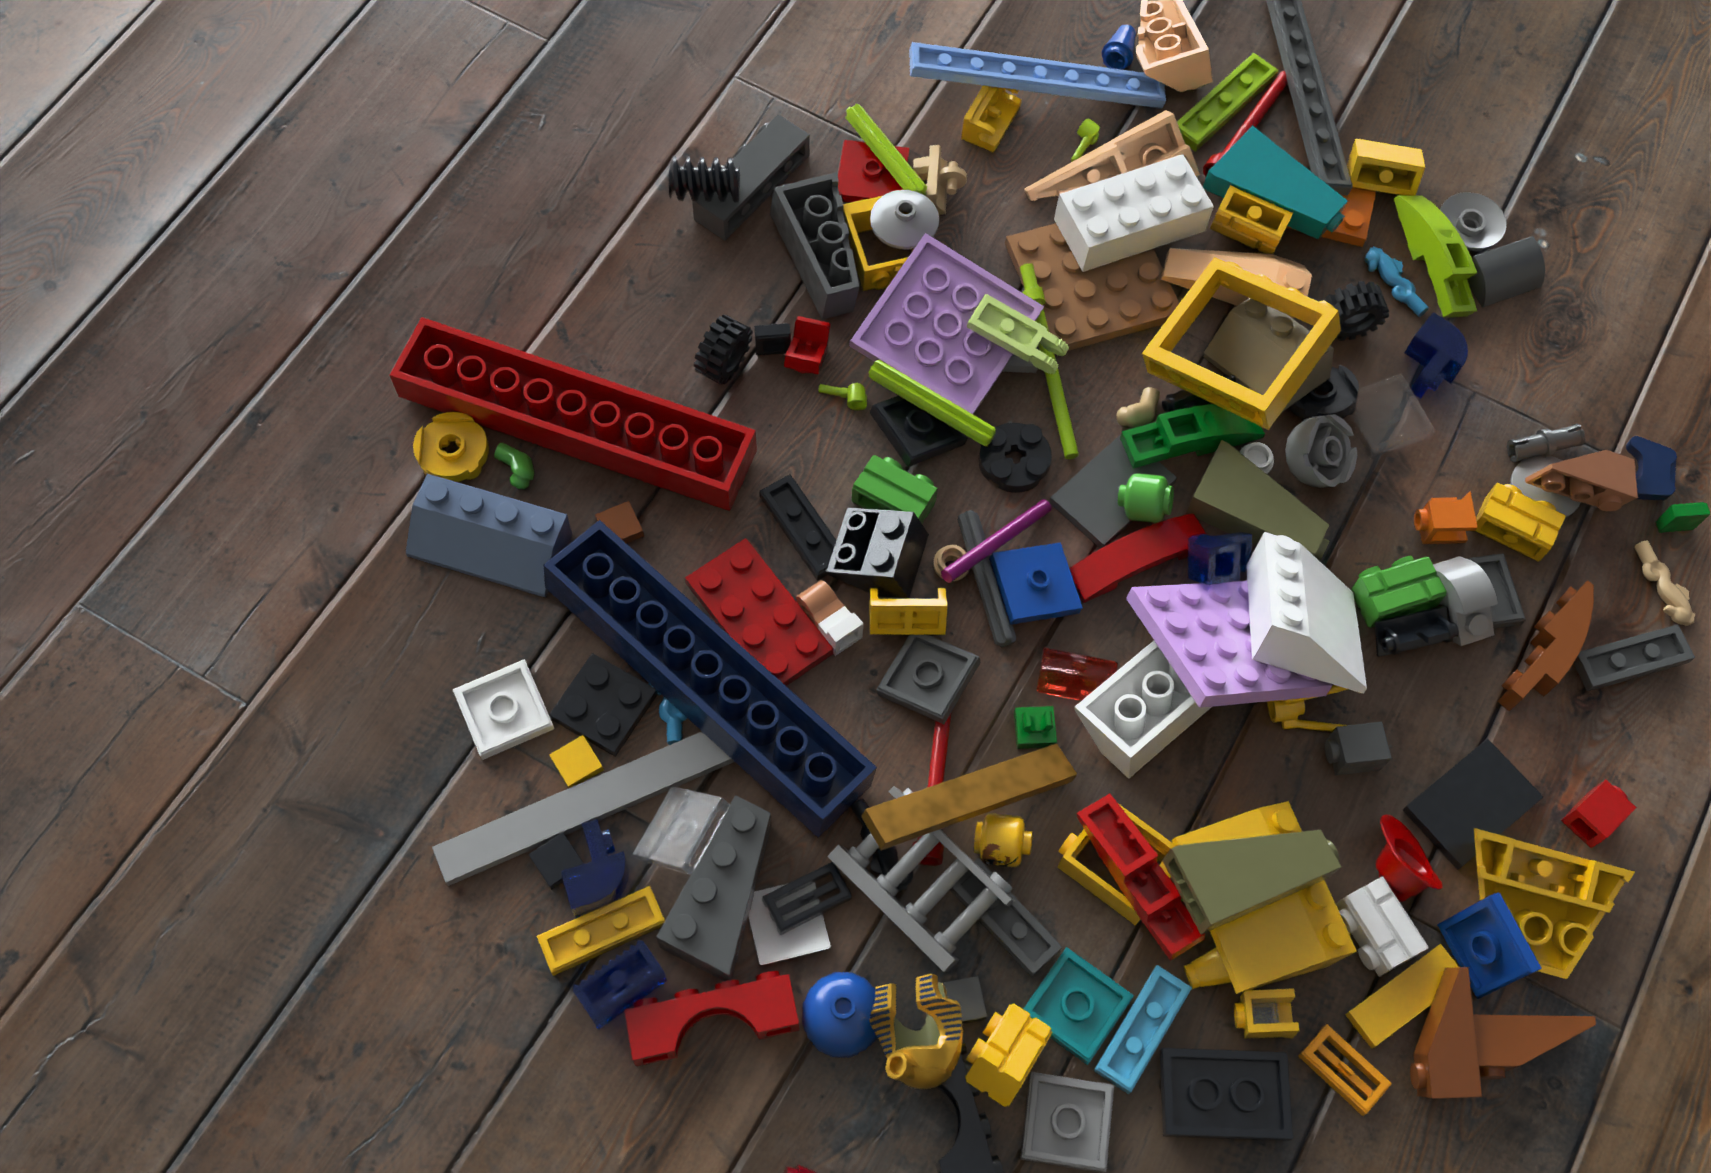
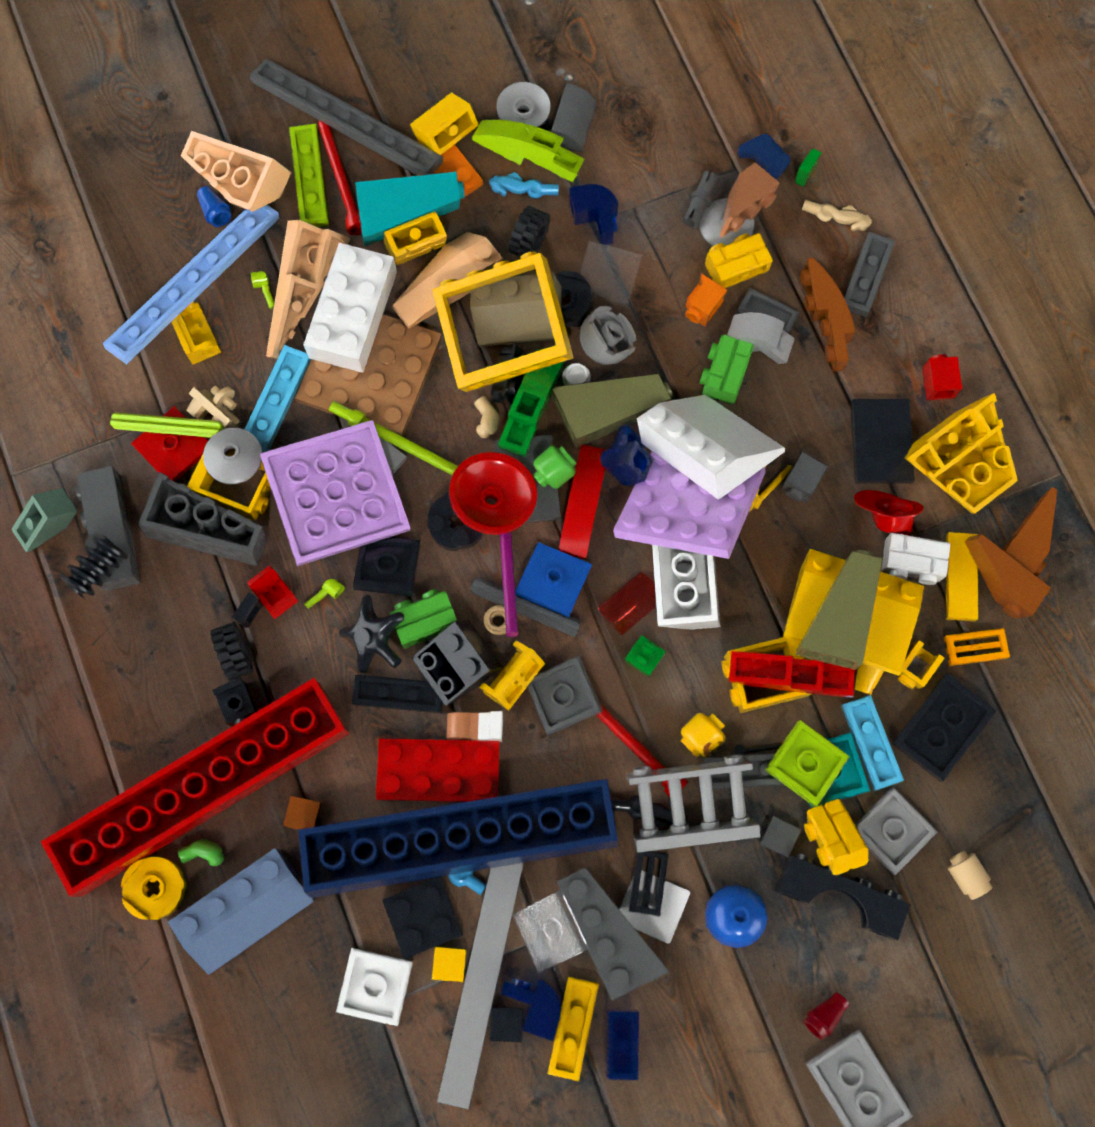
camera: 50 degrees left, 10 degrees up
(659, 1027) = (664, 1038): red arch -> none
(687, 383) = (231, 691): none -> black brick
(717, 122) = (43, 518): none -> sand green slope
(839, 457) = (372, 635): none -> black animal
(921, 1056) = (806, 890): pearl gold piece -> none
(932, 403) = (381, 546): lime axle -> none
(967, 796) = (667, 737): pearl gold tile -> none
(995, 220) = (277, 396): none -> medium azure plate
(1016, 333) = (378, 455): yellowish green hinge -> none
(1061, 967) = (807, 763): none -> lime tile
(1067, 939) = (741, 750): none -> black hinge
(1077, 445) = (496, 478): none -> red dish
(1414, 631) = (756, 387): black hinge -> none
(1489, 945) = (973, 509): blue plate -> none

